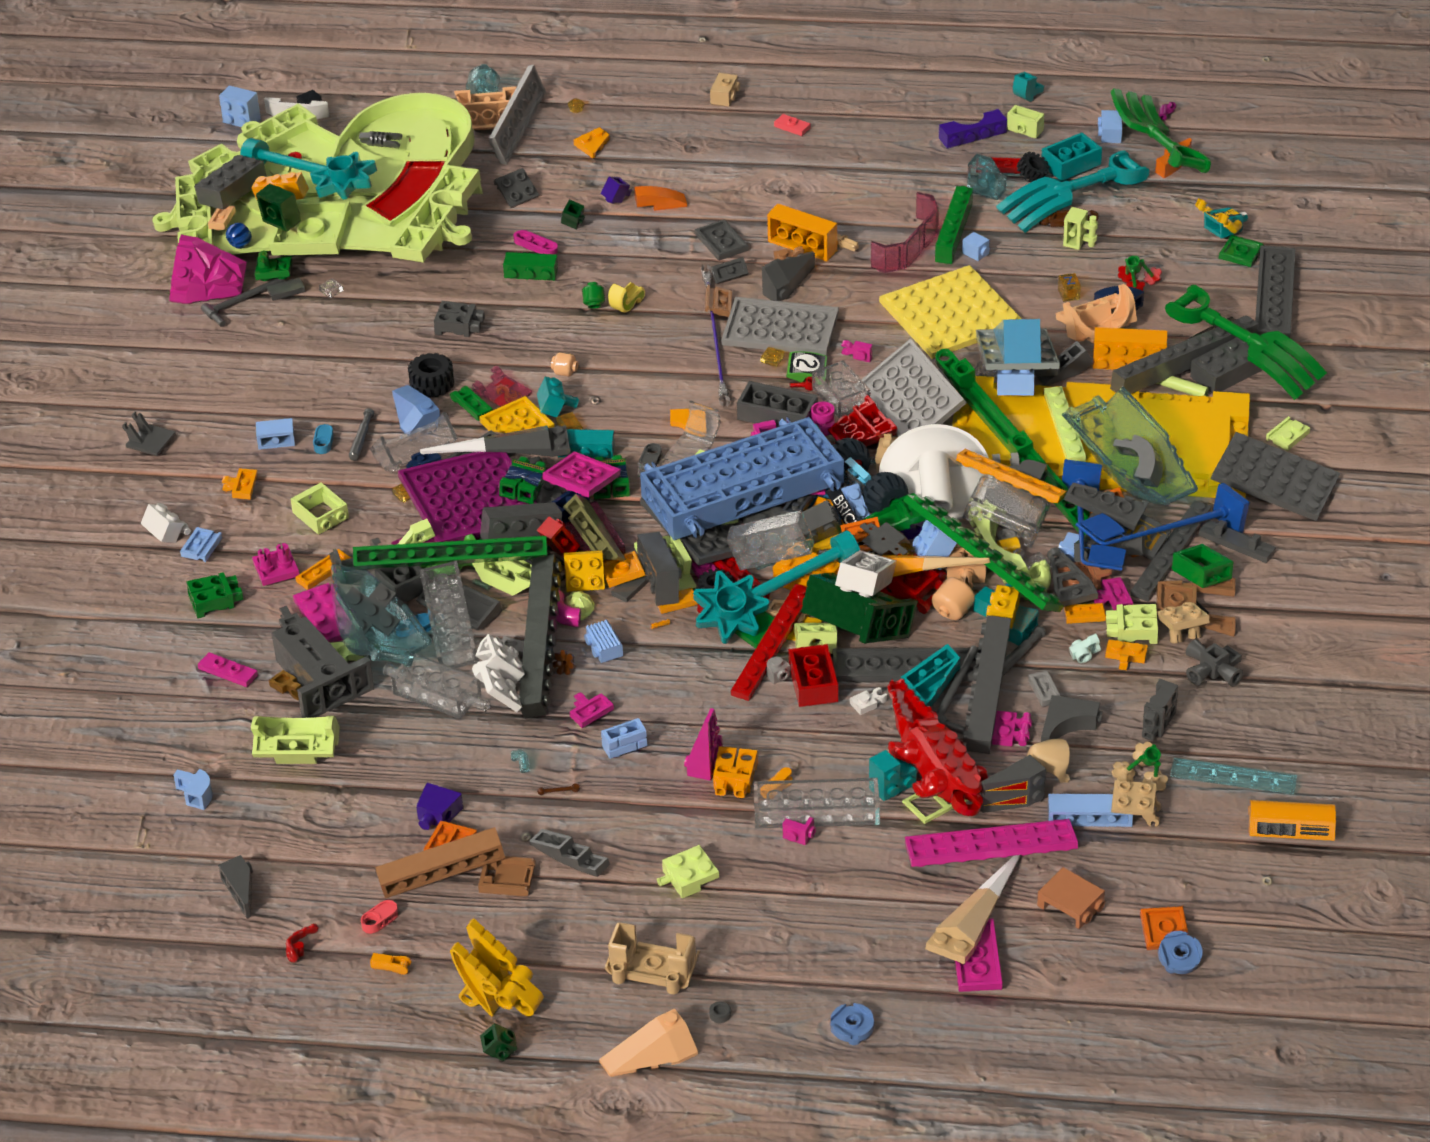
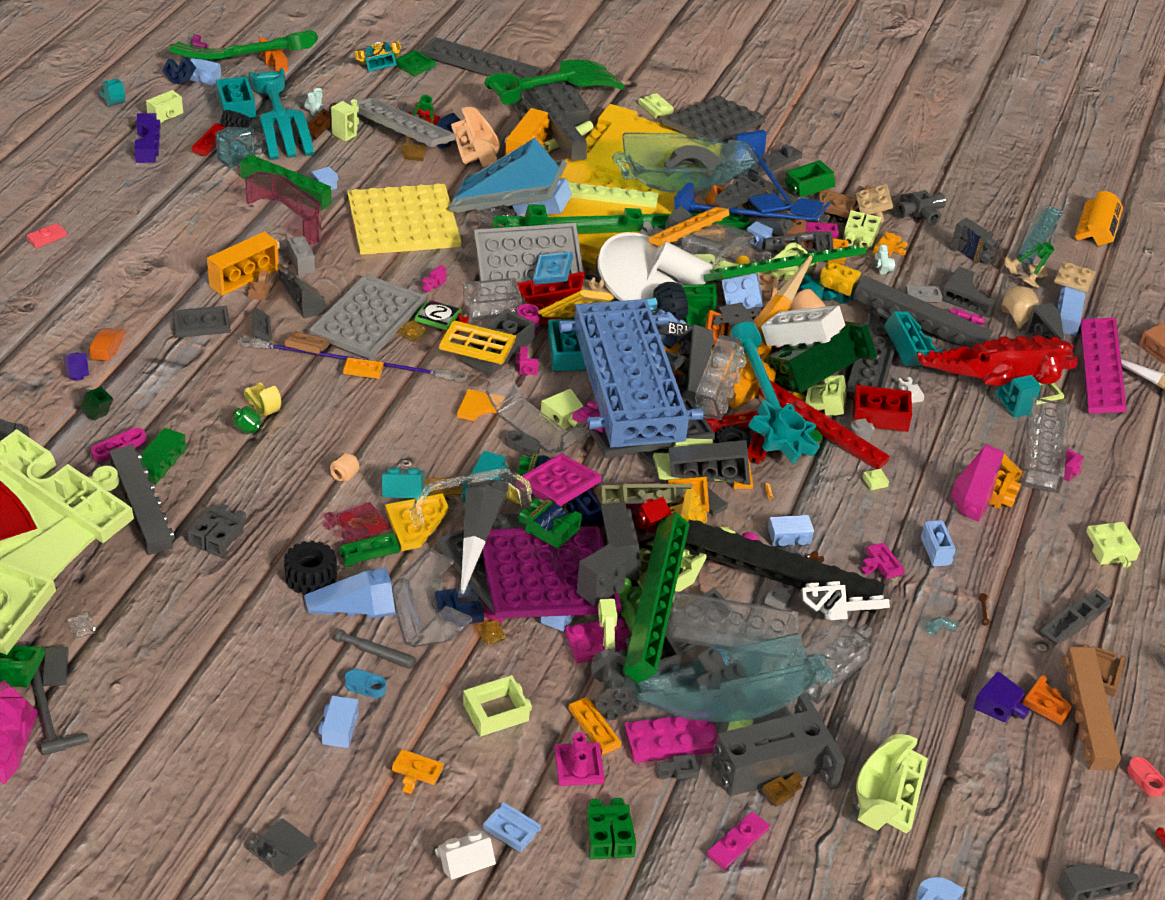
camera: 80 degrees left, 0 degrees up
(453, 511) = (602, 574): none -> dark grey brick
(465, 267) = (141, 498): none -> dark grey brick
(558, 446) = (512, 478): none -> clear windscreen
(703, 342) = (363, 368): none -> light orange plate
(712, 692) = (875, 479): none -> yellowish green plate
(768, 391) = (482, 354): none -> yellow piece
(820, 422) = (566, 307): none -> yellow piece
(842, 264) = (301, 255): none -> light grey brick
(895, 407) = (553, 268): none -> dark azure plate
(1094, 111) = (179, 74): none -> dark blue plate
(1100, 262) = (403, 122): none -> light grey plate
(1102, 202) = (313, 101): none -> light aqua plate

